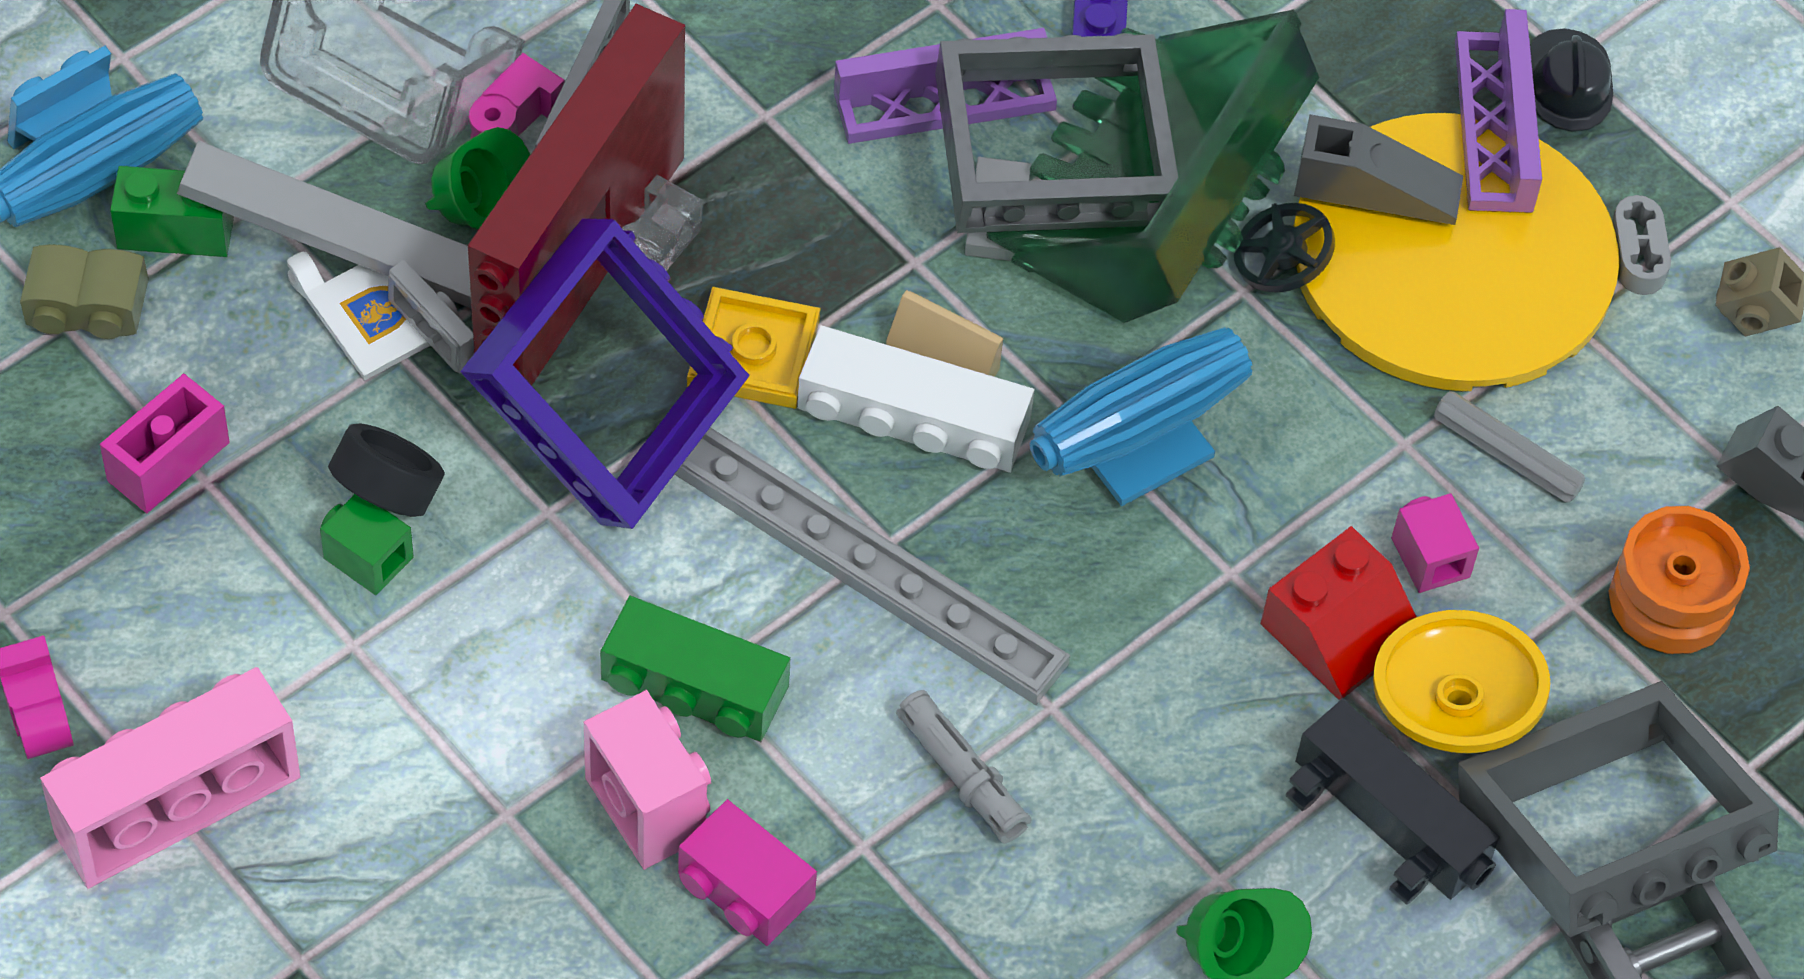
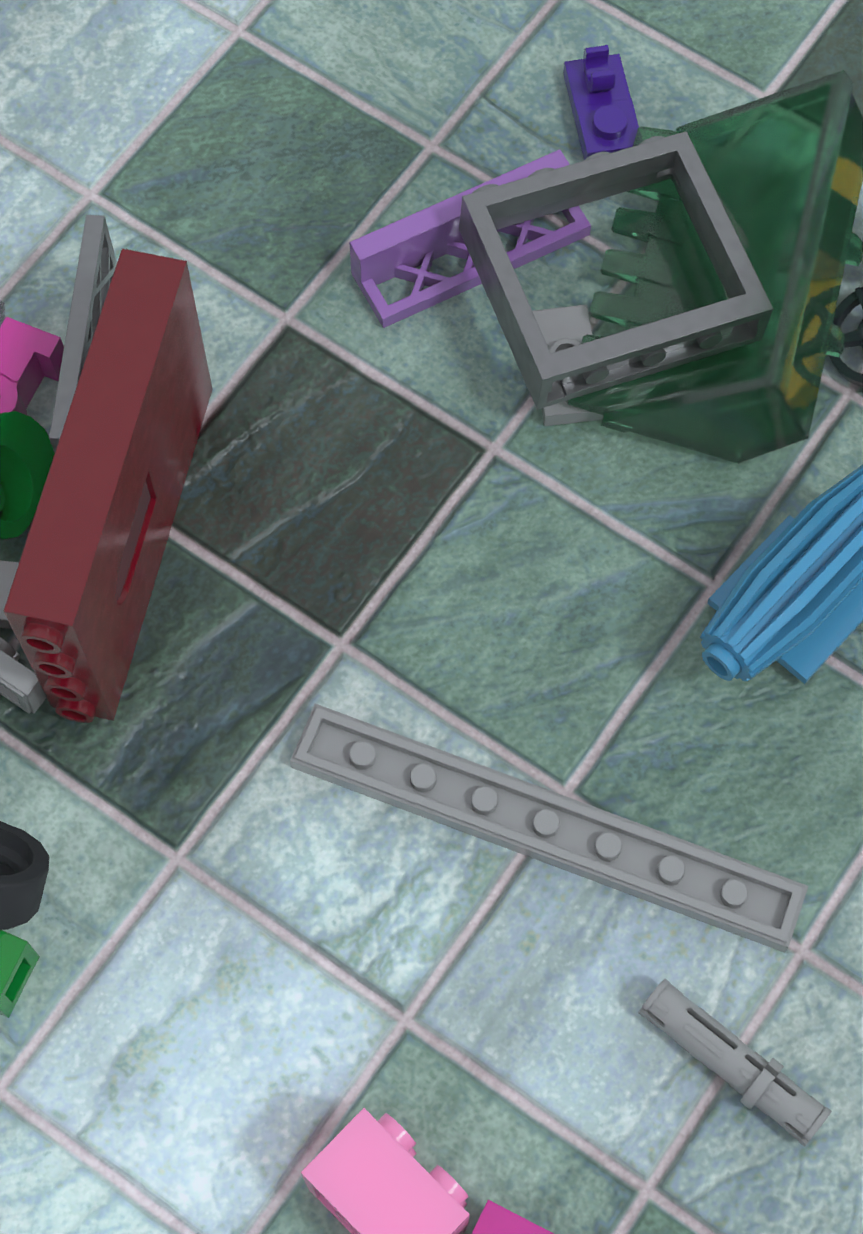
camera: 10 degrees left, 10 degrees up
(668, 221) = (212, 491): clear leg -> none
(695, 669) = (397, 1026): green brick -> none
(718, 377) = (299, 729): dark purple window -> none
(767, 340) = (350, 597): yellow tile -> none
(915, 399) = (548, 618): white brick -> none
(944, 336) = (558, 542): tan slope -> none

